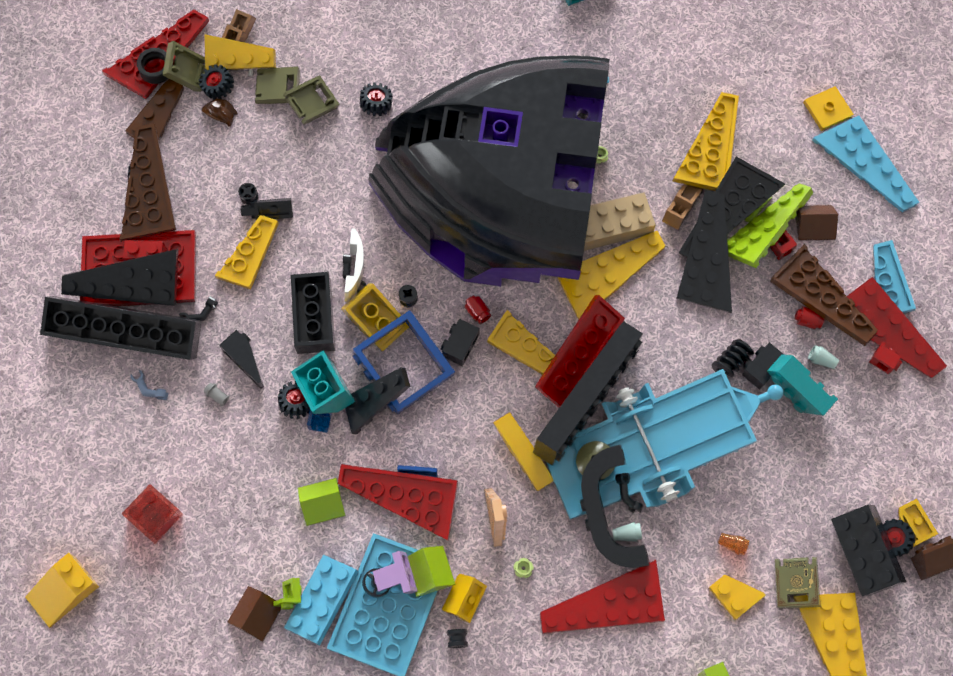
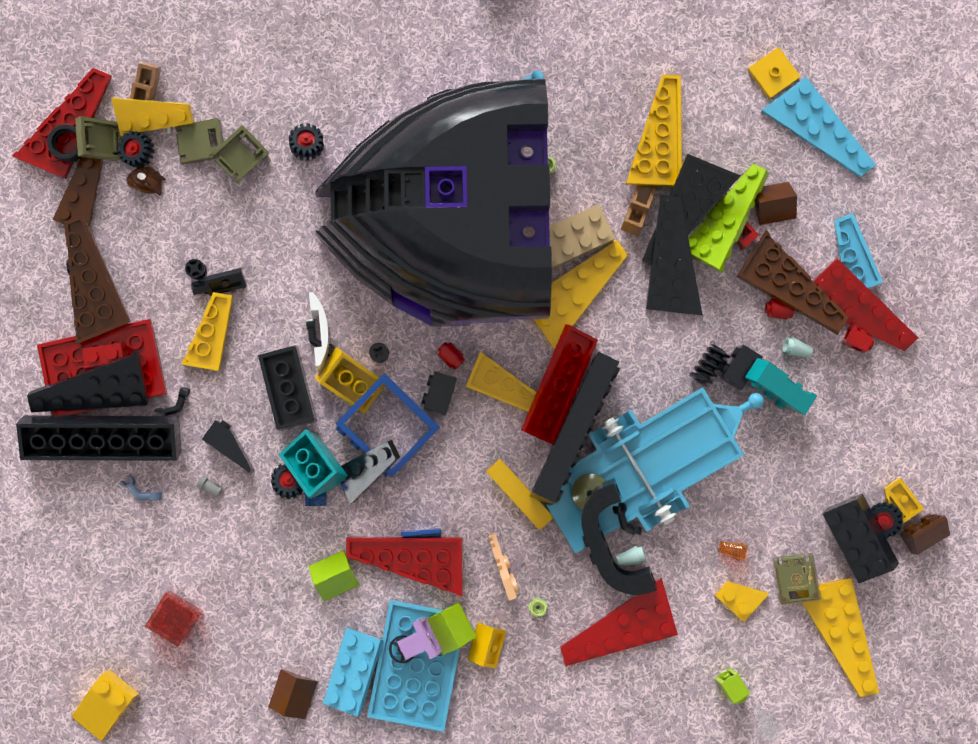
camera: 15 degrees left, 15 degrees up
(291, 594) = (324, 673): lime bracket -> none
(457, 638) = (487, 686): black wheel -> none

